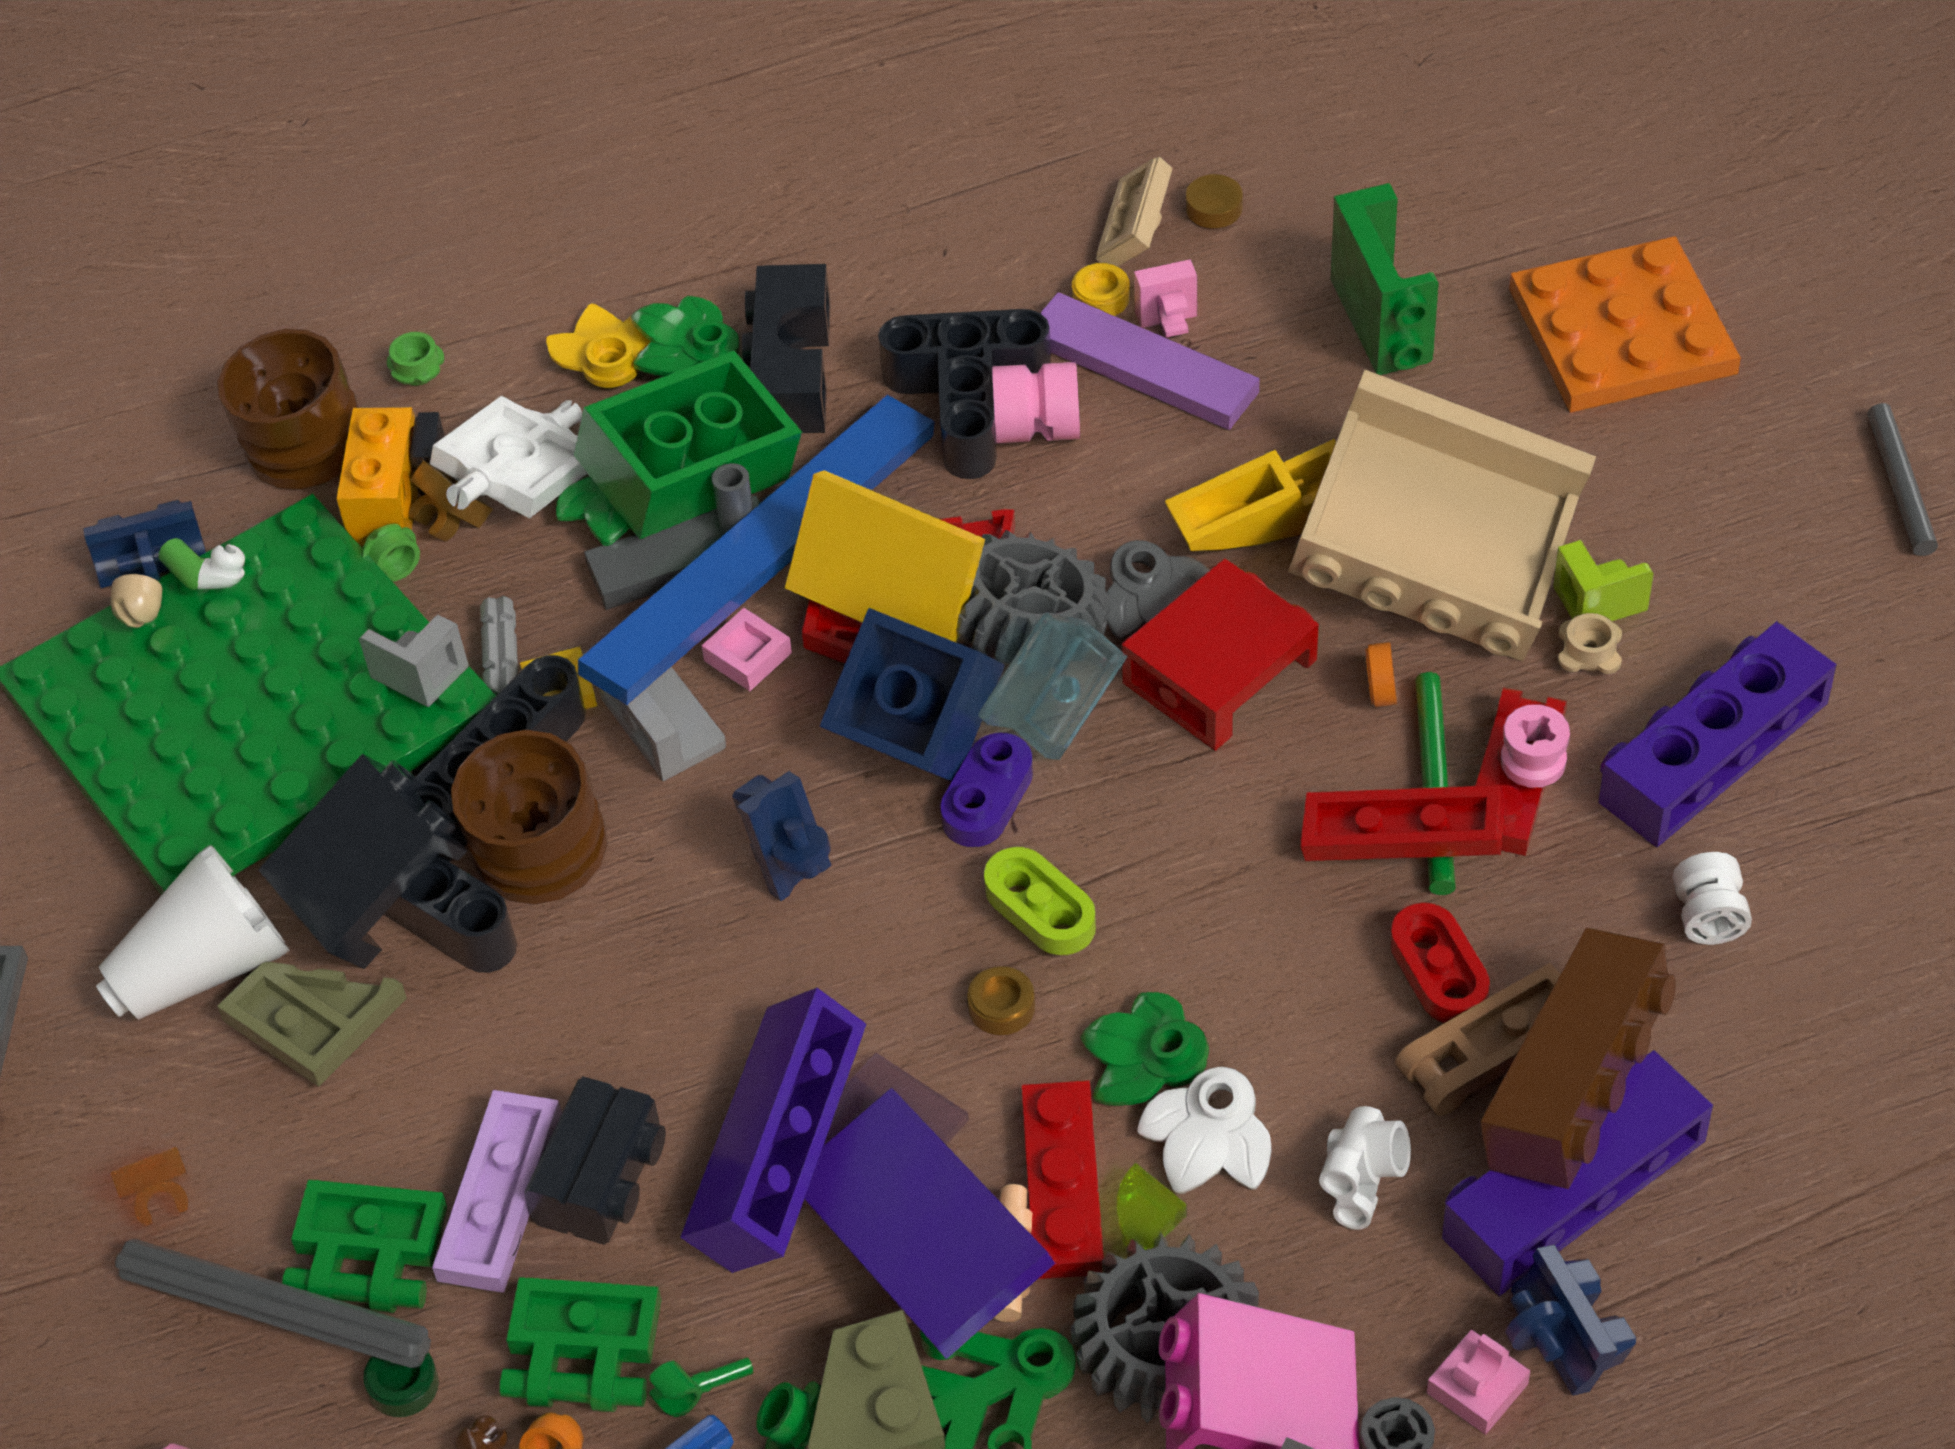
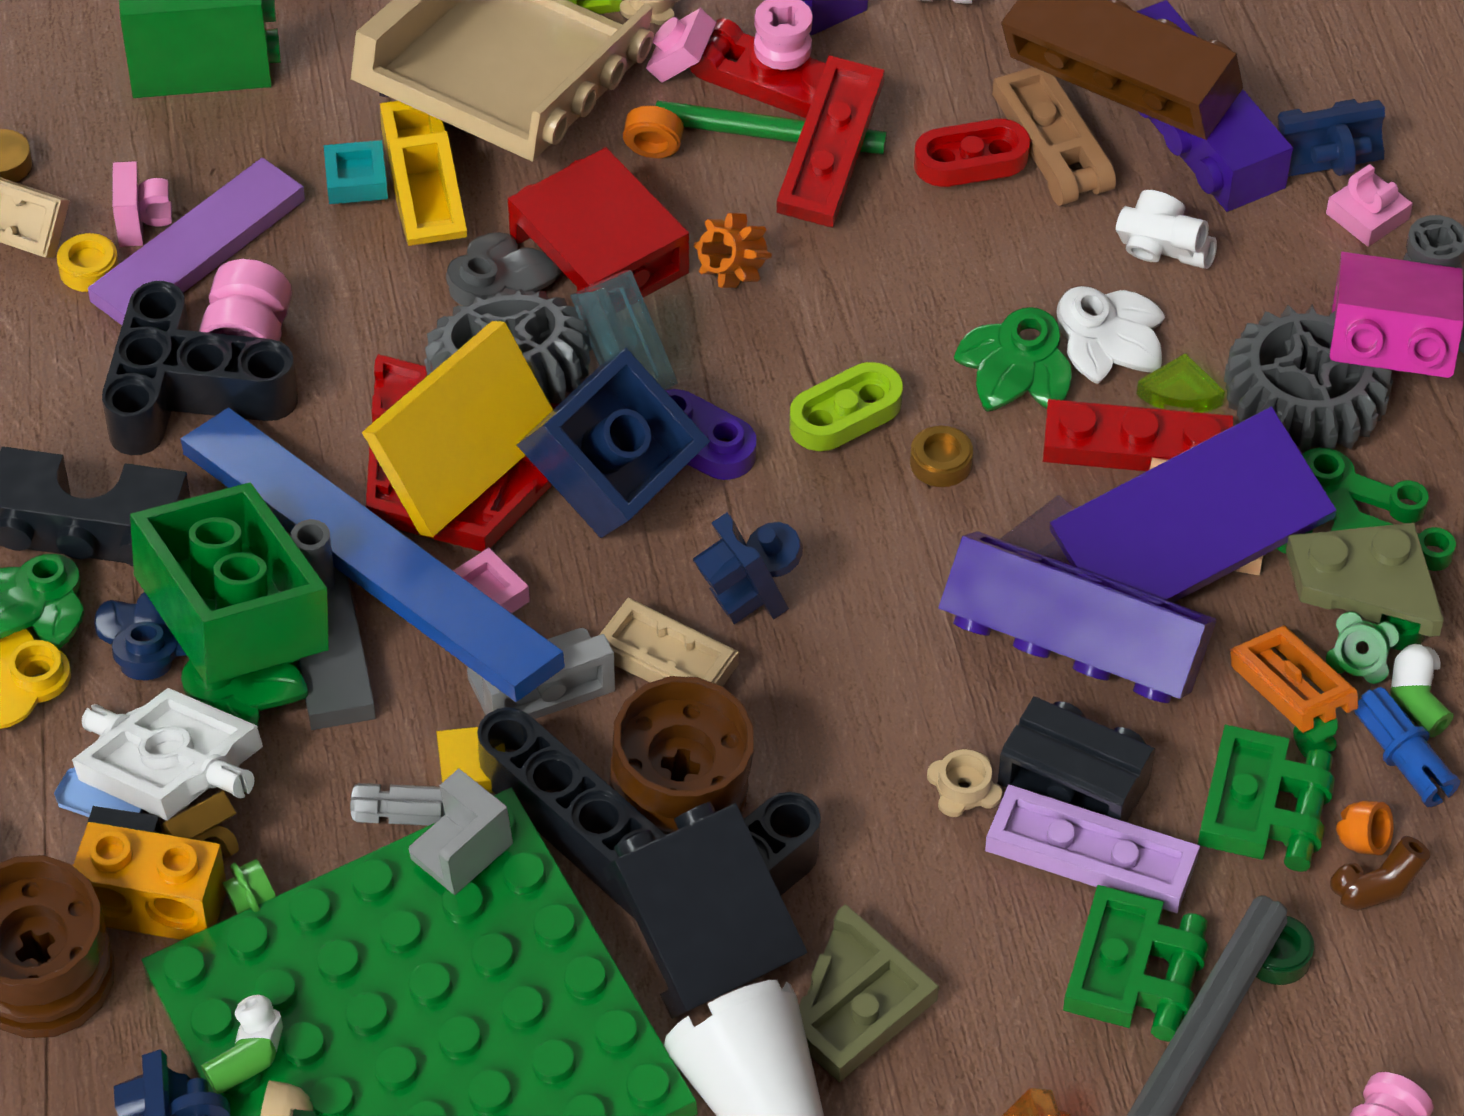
camera: 85 degrees left, 0 degrees up
(566, 1058) = (969, 768): none -> tan plate
(694, 803) = (662, 647): none -> tan plate
(744, 1359) = (1283, 681): none -> orange tile
(1222, 764) = (732, 250): none -> orange gear
(1254, 439) = (355, 172): none -> teal plate
(1516, 672) = (680, 44): none -> bright pink plate

